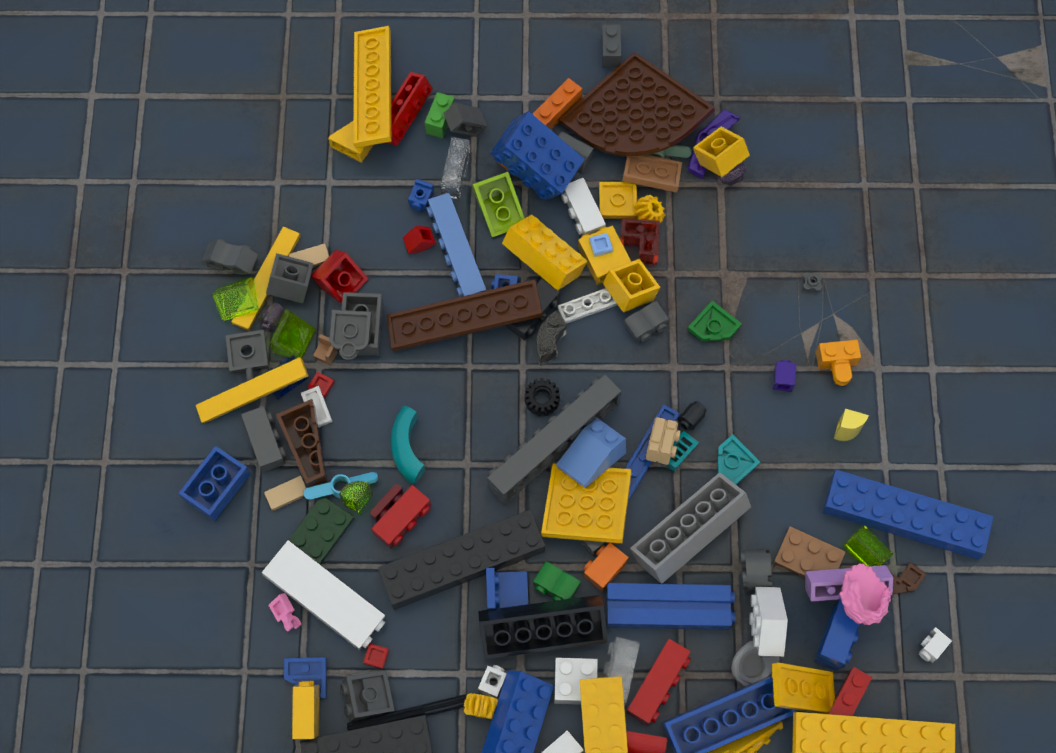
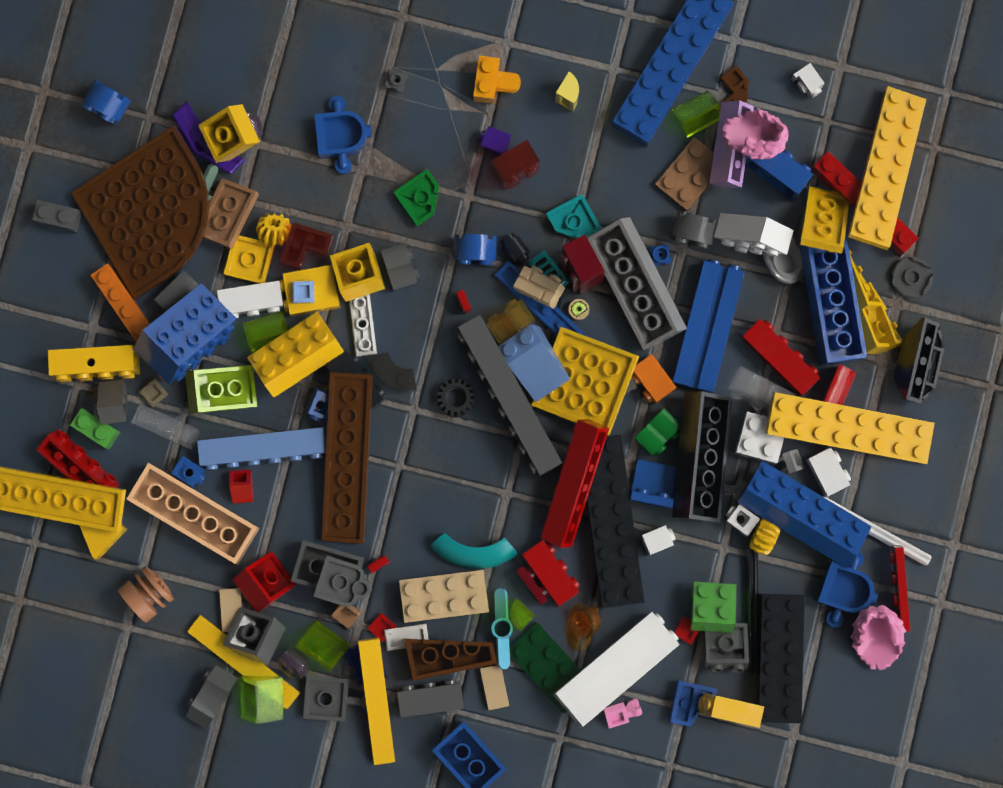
camera: 75 degrees left, 15 degrees up
(307, 183) = (146, 594): none -> nougat wheel
(359, 428) = (444, 596): none -> tan brick
(359, 557) = (582, 624): none -> clear orange piece
(376, 366) = (378, 564): none -> red tile
(384, 205) = (193, 513): none -> light nougat brick
(402, 672) = (713, 607): none -> bright green brick
(453, 604) = (658, 540): none -> white brick
(481, 154) = (153, 393): none -> dark tan tile
(488, 513) = (574, 483): none -> red brick
(493, 96) = (93, 362): none -> yellow brick
(560, 225) = (264, 330): none -> clear neon green brick
(561, 717) = (792, 460): none -> light grey tile
(627, 424) = (513, 320): none -> clear yellow brick
(631, 382) = (463, 301): none -> red tile
(652, 486) = (578, 309): none -> tile
(680, 379) = (475, 248): none -> blue brick
(692, 467) = (581, 264): none -> dark red brick
(718, 57) = (107, 101): none -> blue brick
(726, 541) = (664, 249): none -> blue plate
(749, 246) = (340, 134): none -> blue piece
(768, 395) = (516, 165): none -> clear red brick

